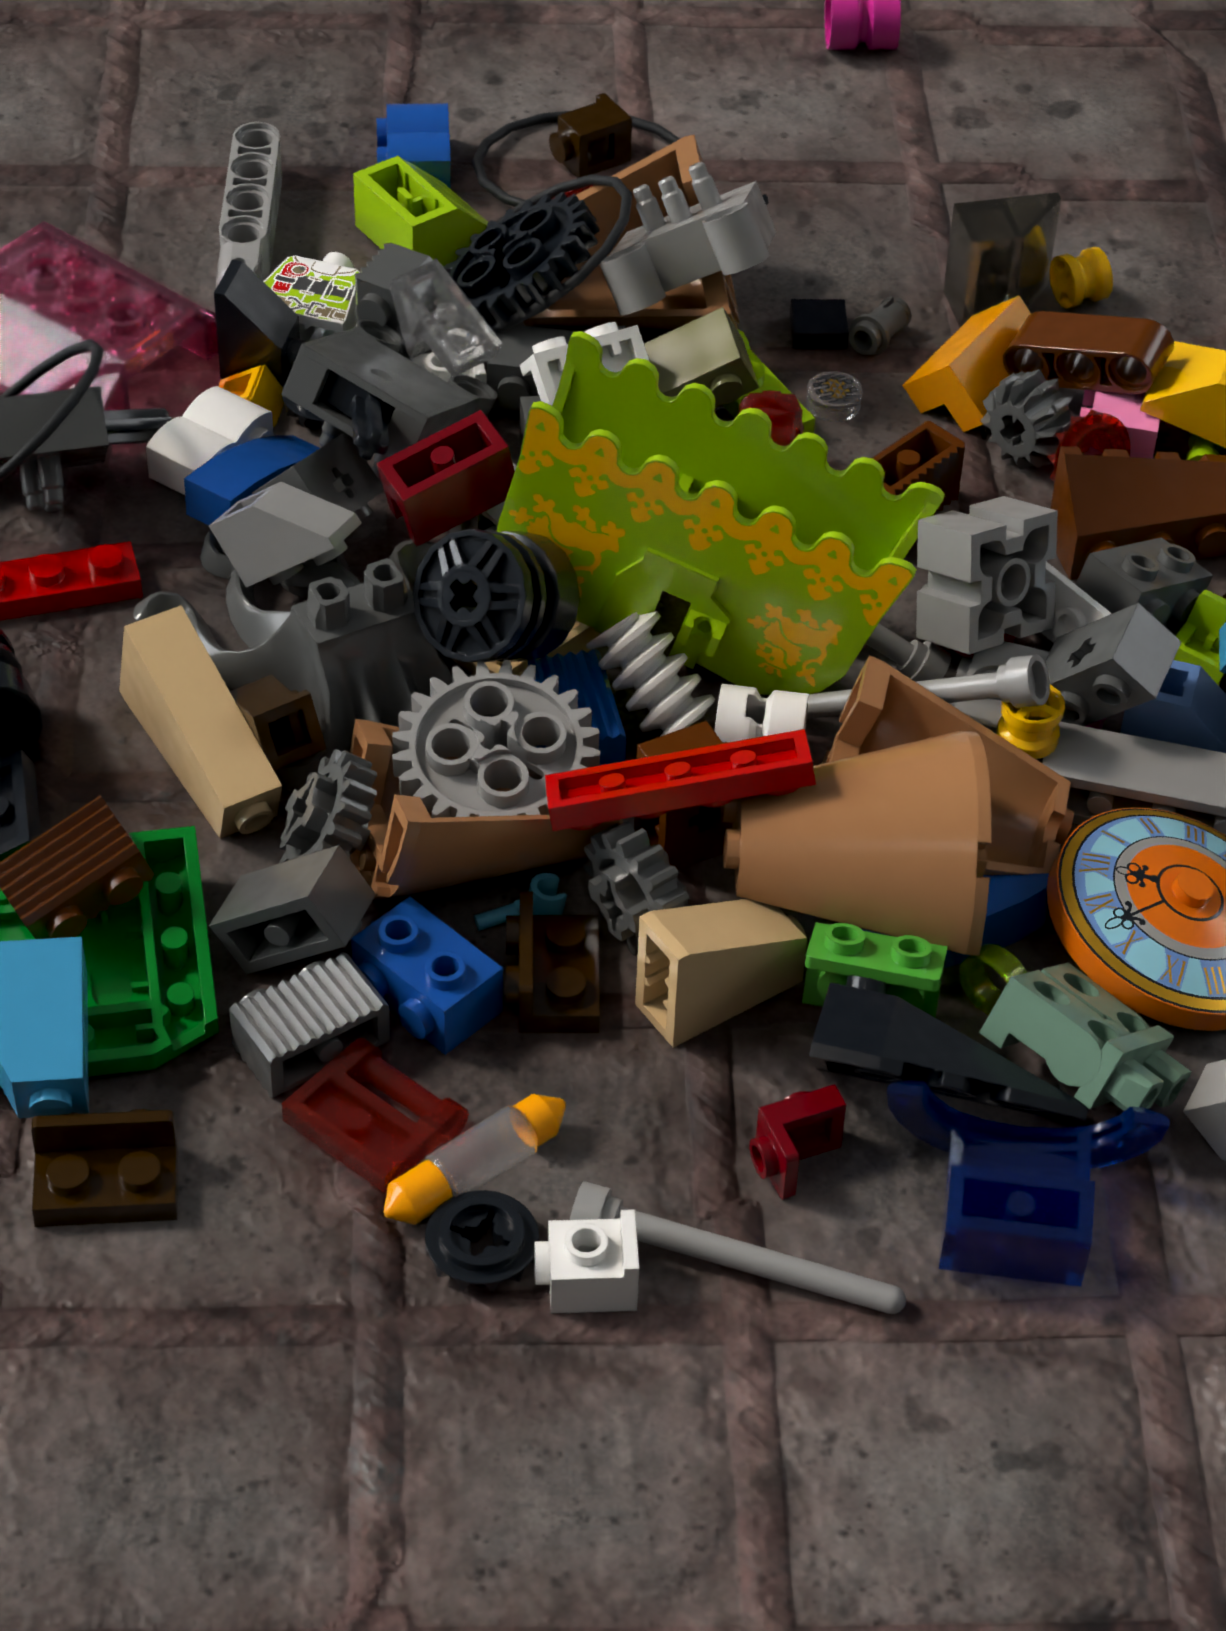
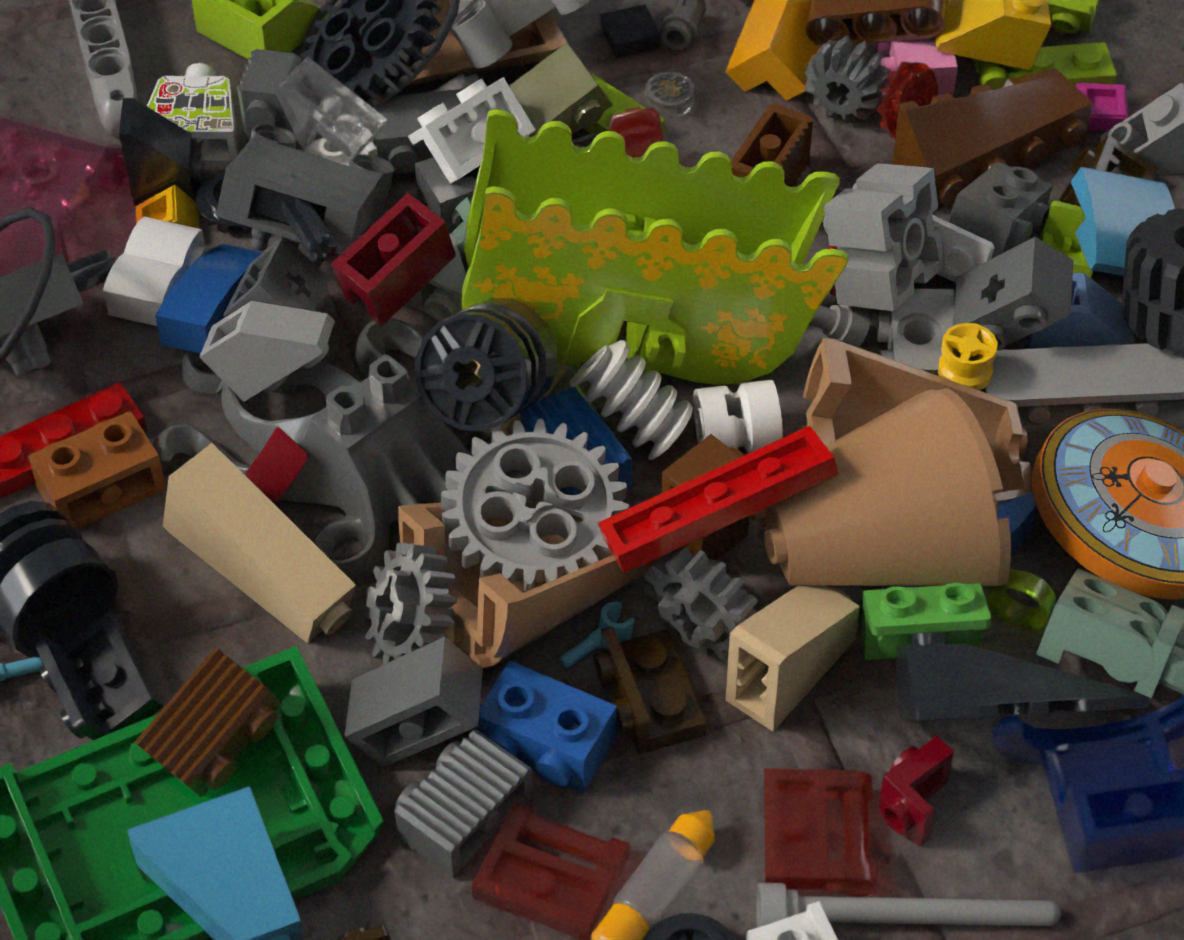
camera: 15 degrees left, 5 degrees up
(68, 618) = (98, 470): none -> dark orange brick
(248, 653) = (277, 465): none -> dark red sticker
(280, 720) = (332, 523): dark brown brick -> none
(652, 1143) = (798, 830): none -> clear red plate
(1020, 681) = (958, 331): light grey piece -> none

